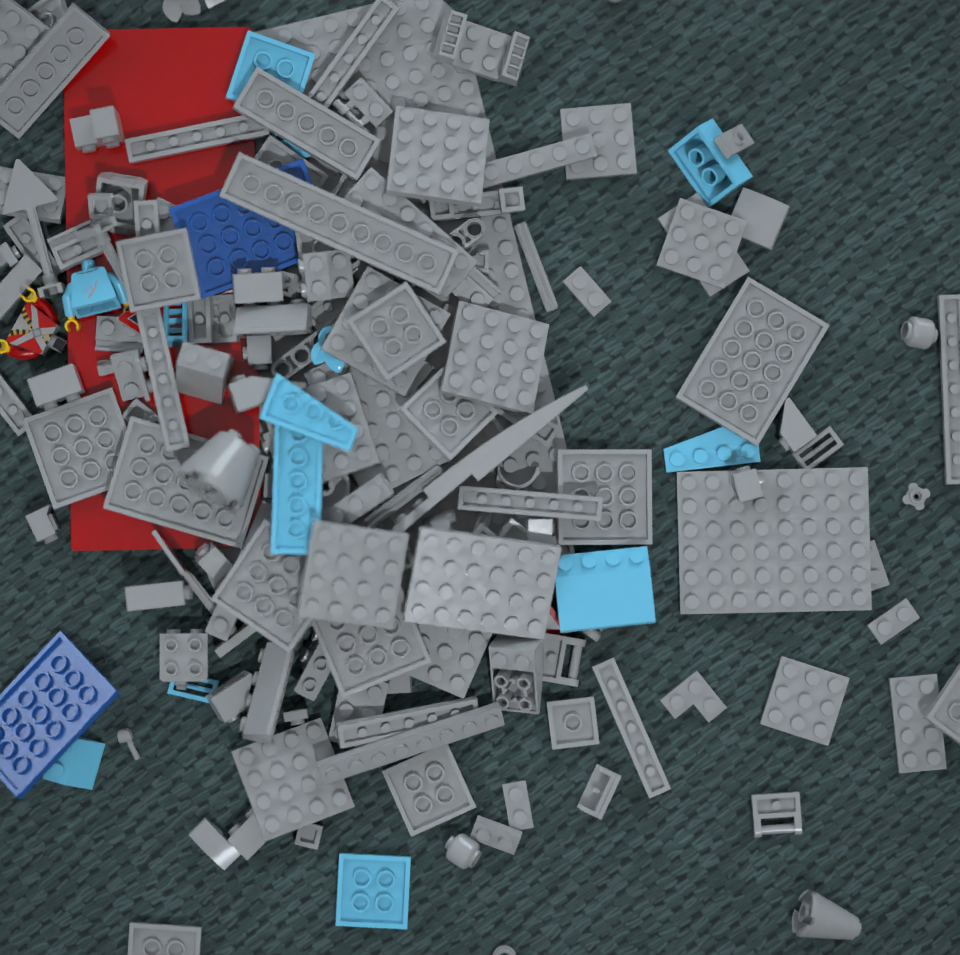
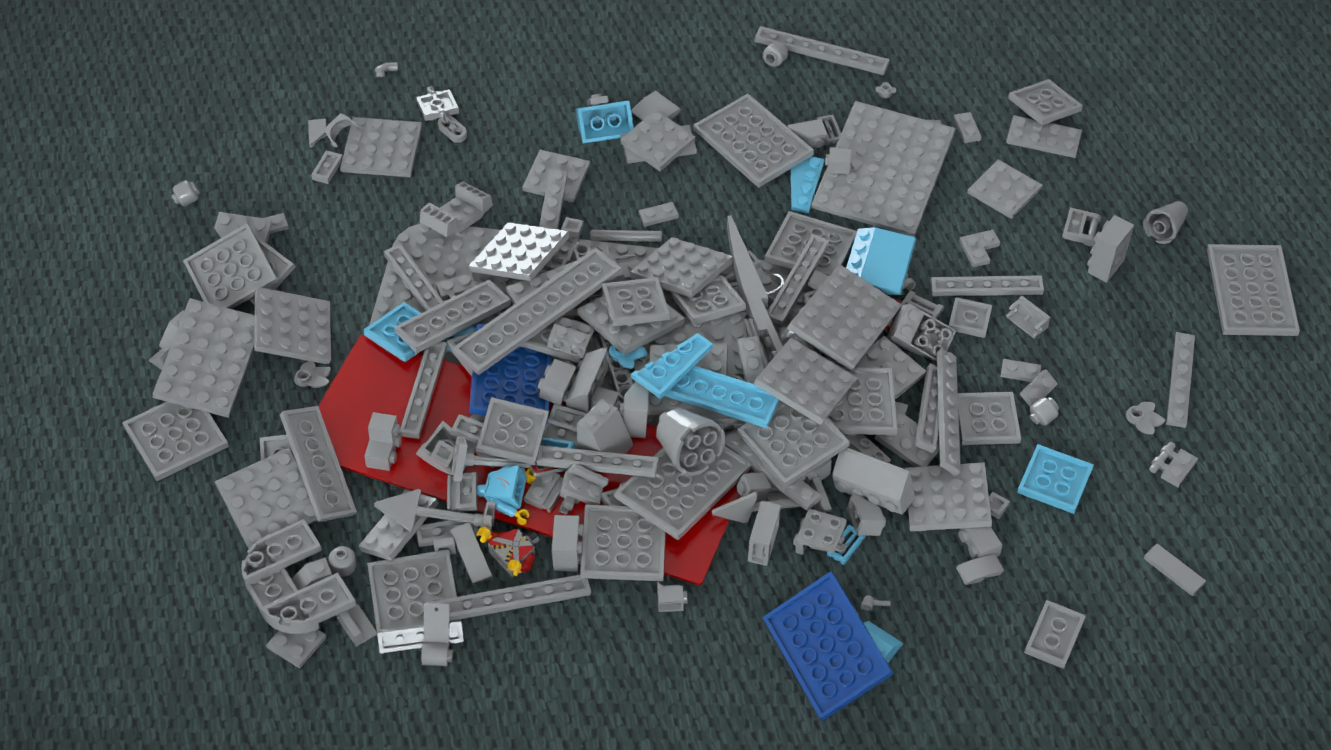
camera: 65 degrees left, 35 degrees down
(731, 864) = (1110, 248): none -> light grey brick

